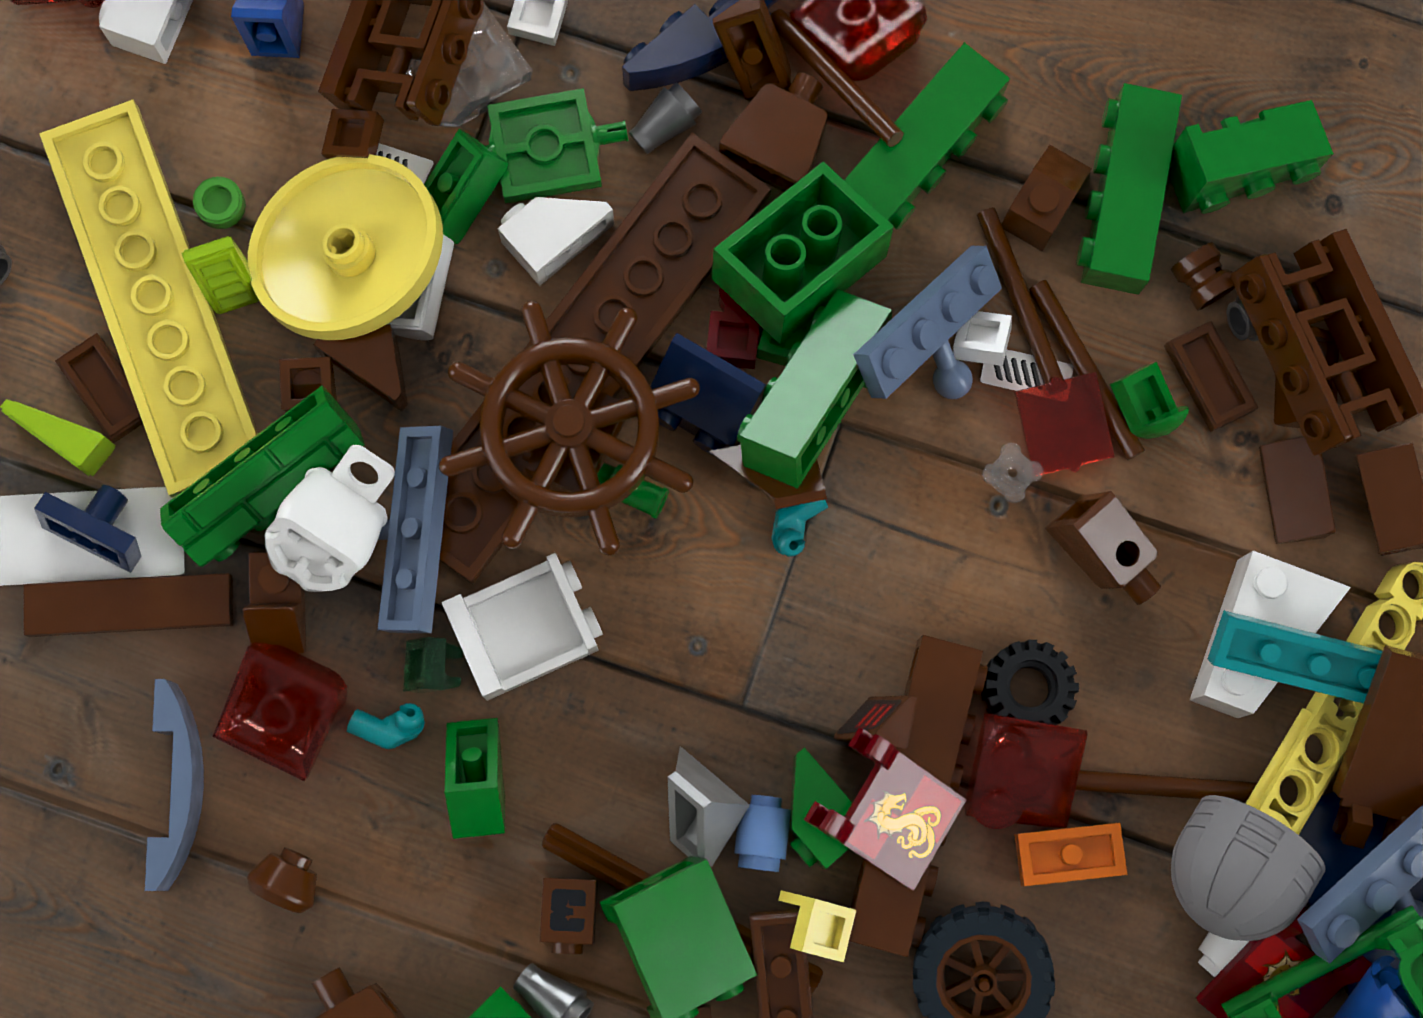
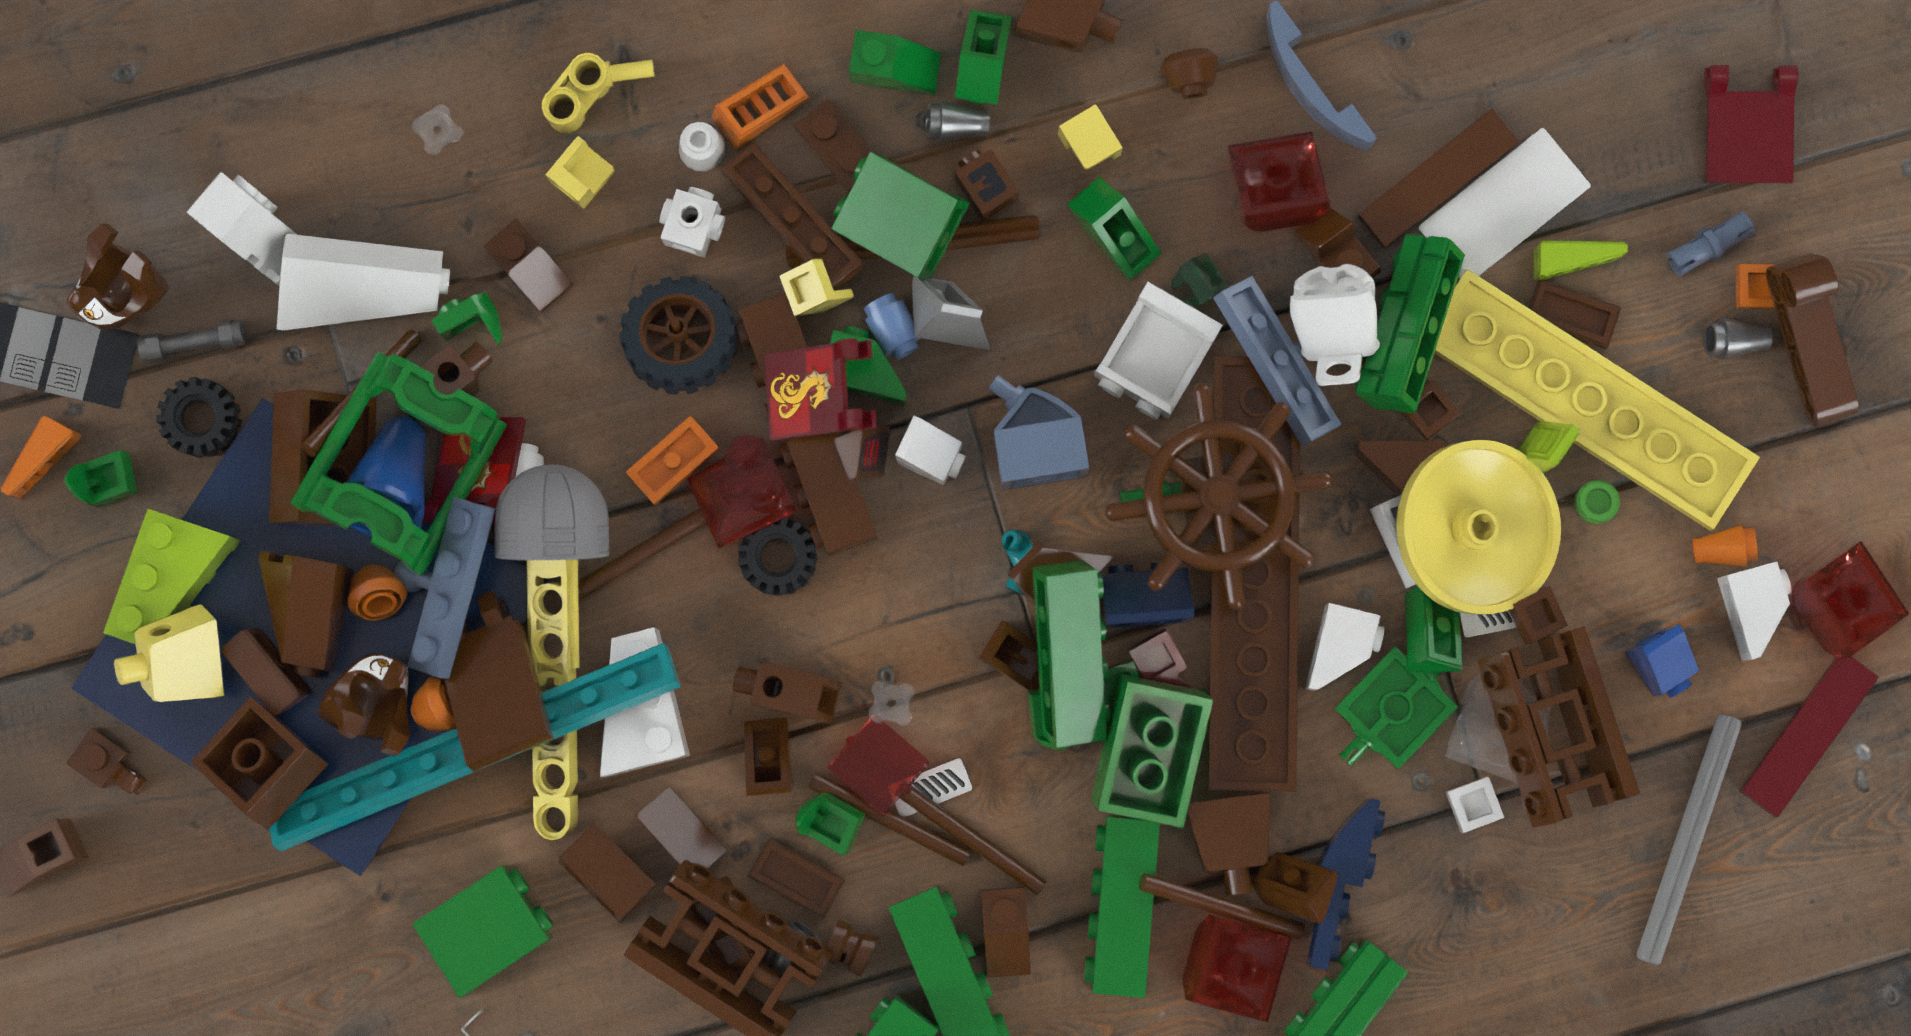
camera: 155 degrees right, 5 degrees up
(92, 527) = (1502, 212): dark blue tile -> none
(133, 77) = (1727, 547): none -> orange cone
(391, 730) = (1195, 219): teal arm -> none
(433, 883) = (1090, 137): none -> light yellow panel
(666, 117) = (1323, 791): flat silver cone -> none
(701, 617) = (1037, 438): none -> sand blue piece
(813, 679) = (930, 452): none -> white slope
(868, 436) = (1013, 656): none -> reddish brown slope
(926, 326) = (1022, 757): sand blue plate -> none
(983, 338) = (980, 786): white plate -> none
(1172, 495) = (767, 757): none -> reddish brown slope

